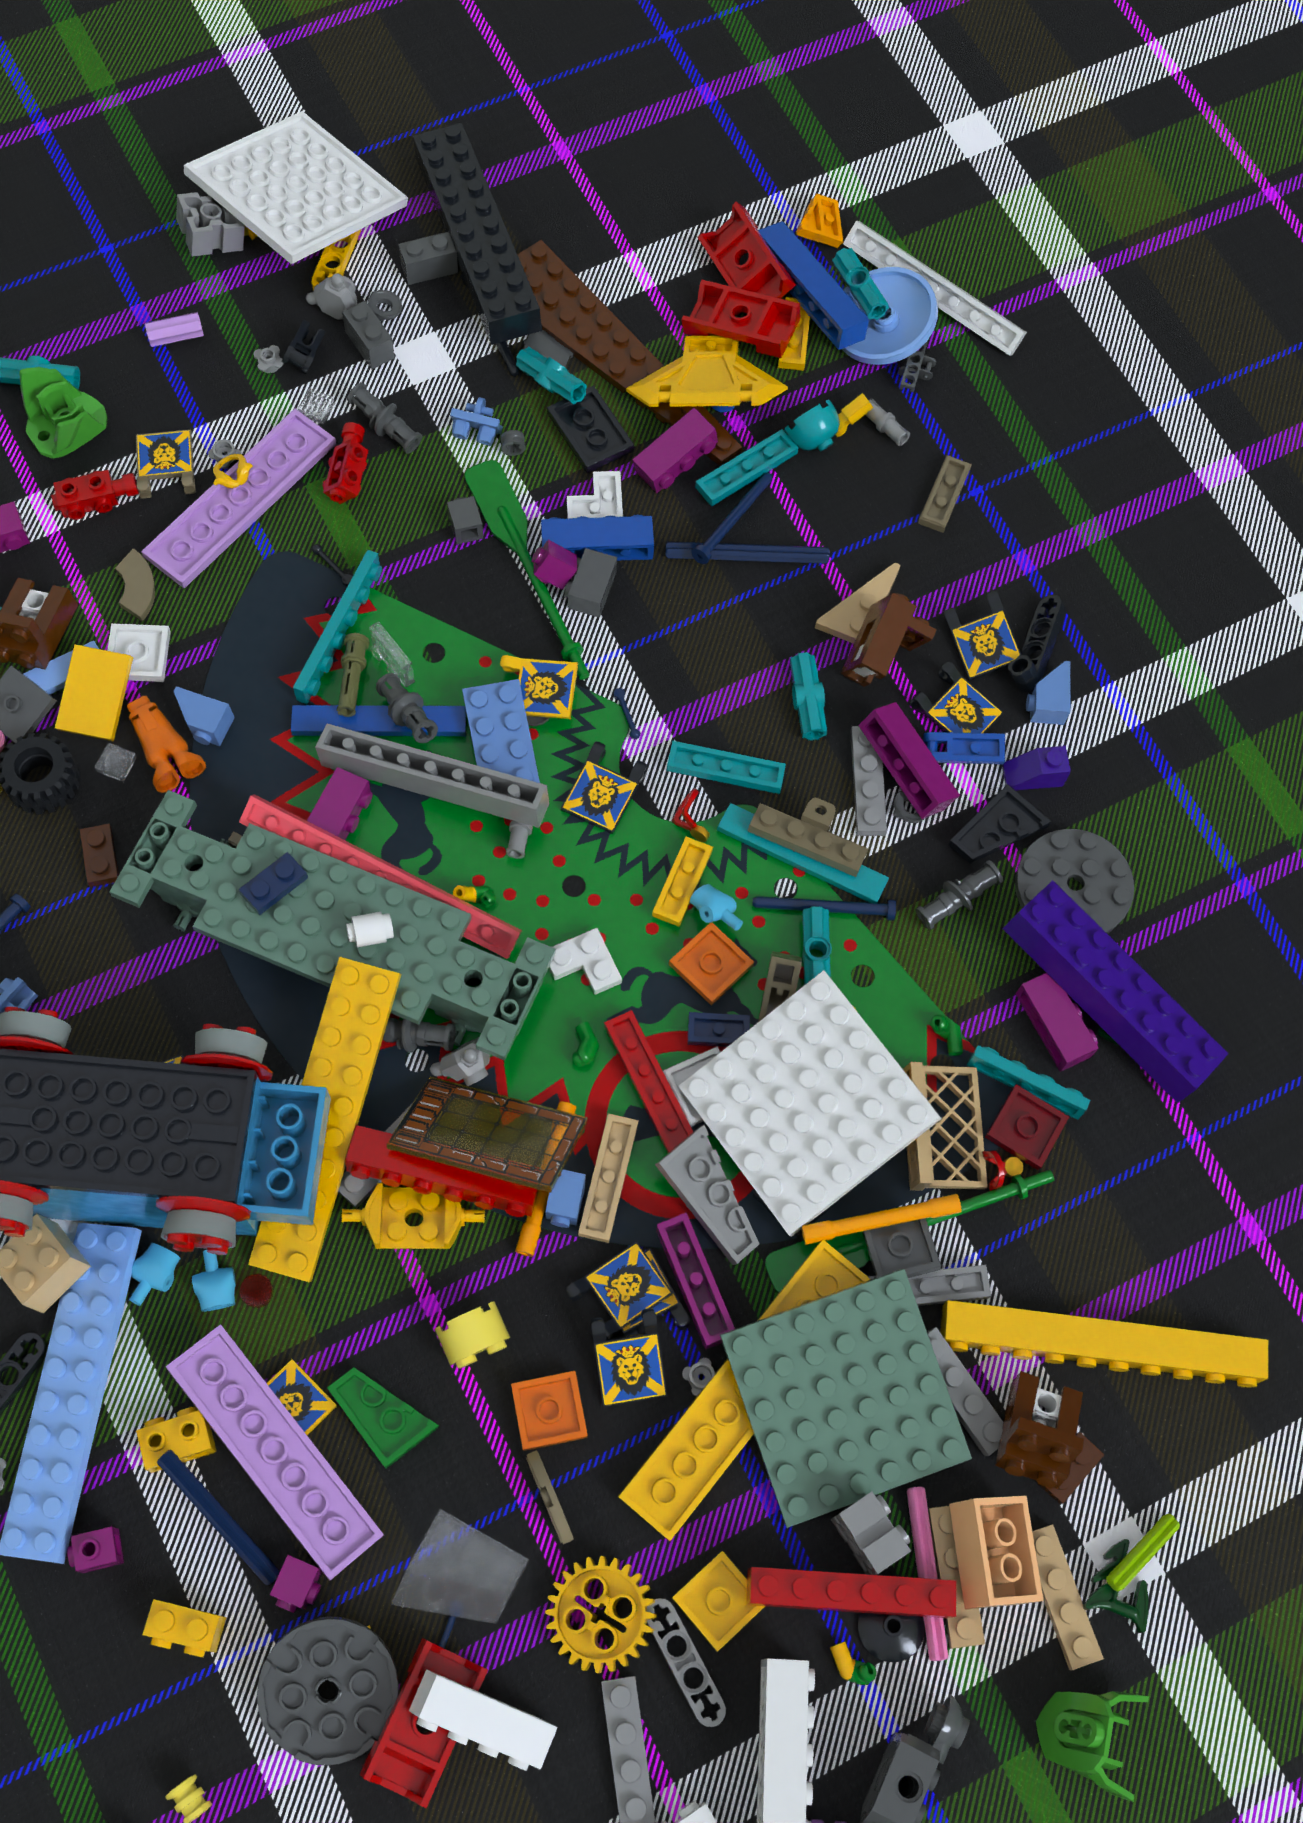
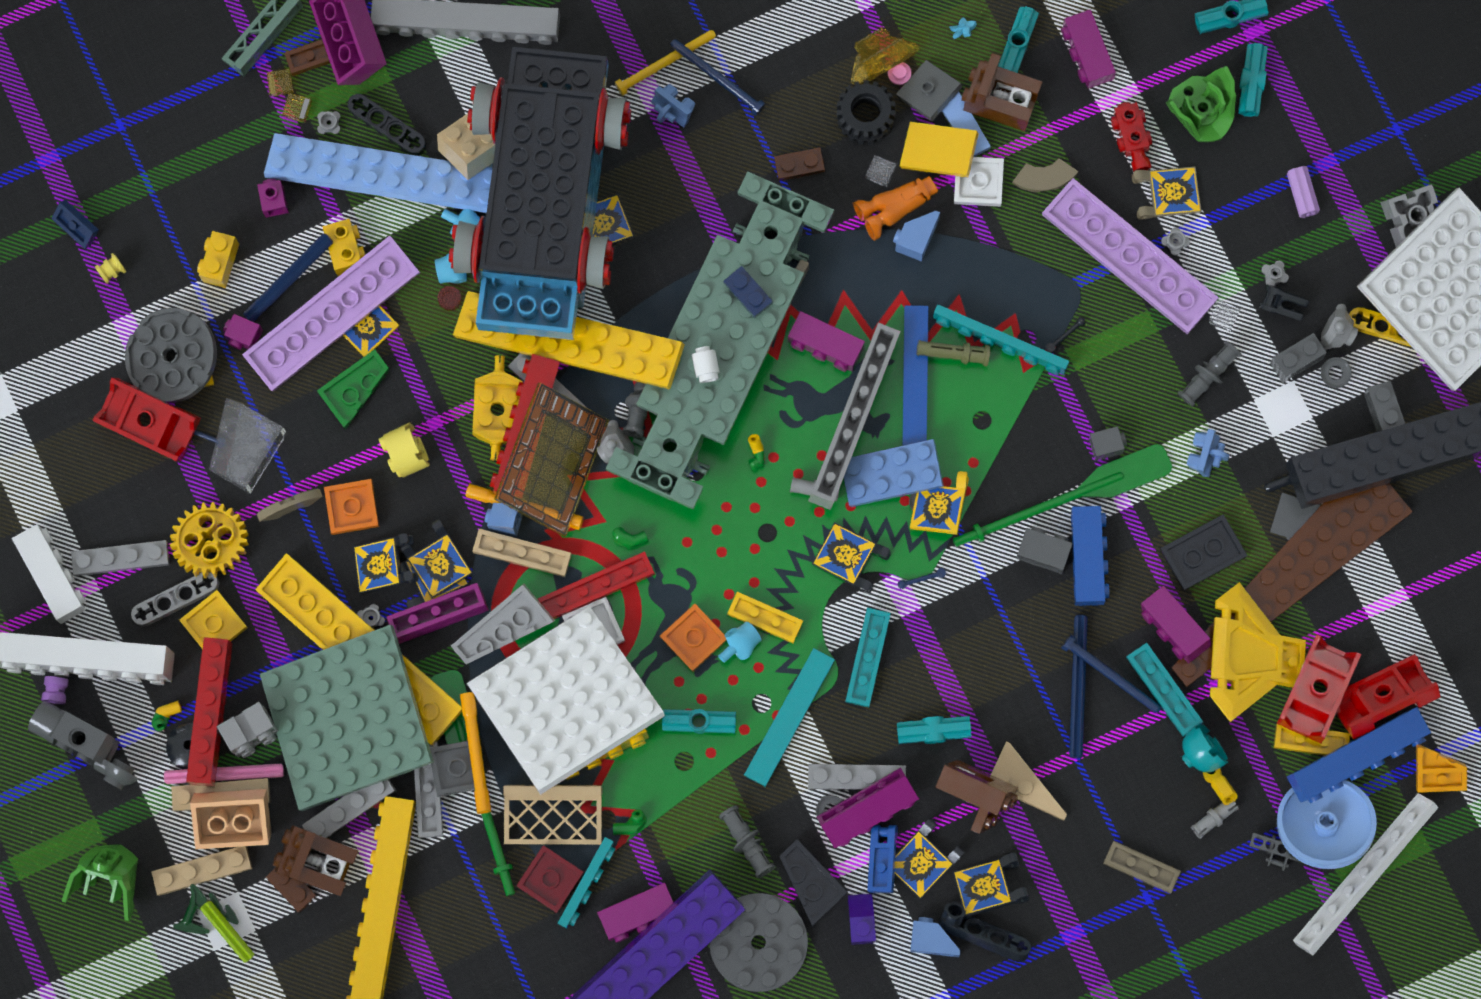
camera: 105 degrees right, 10 degrees up
(242, 472) = (1150, 255): yellow piece -> none
(346, 465) = (1155, 345): red brick -> none
(386, 649) = (975, 379): clear plate -> none
(406, 708) = (916, 394): dark grey piece -> none
(483, 928) = (792, 326): coral plate -> none
(483, 1720) = (143, 456): white brick -> none
(513, 442) = (1187, 485): dark grey bush -> none
(551, 375) = (1253, 517): teal piece -> none
(554, 564) = (1057, 517): magenta brick -> none
(590, 954) = (706, 540): white plate -> none
(604, 502) = (1123, 563): white plate -> none
(696, 831) = (828, 620): red piece -> none
(715, 1028) = (638, 640): dark blue plate -> none
(780, 981) = (671, 689): dark tan slope -> none
(809, 835) = (801, 721): dark tan plate -> none
(860, 283) = (1341, 804): teal piece -> none
(887, 910) = (738, 784): dark blue bar -> none
(1008, 1167) = (520, 865): red piece -> none

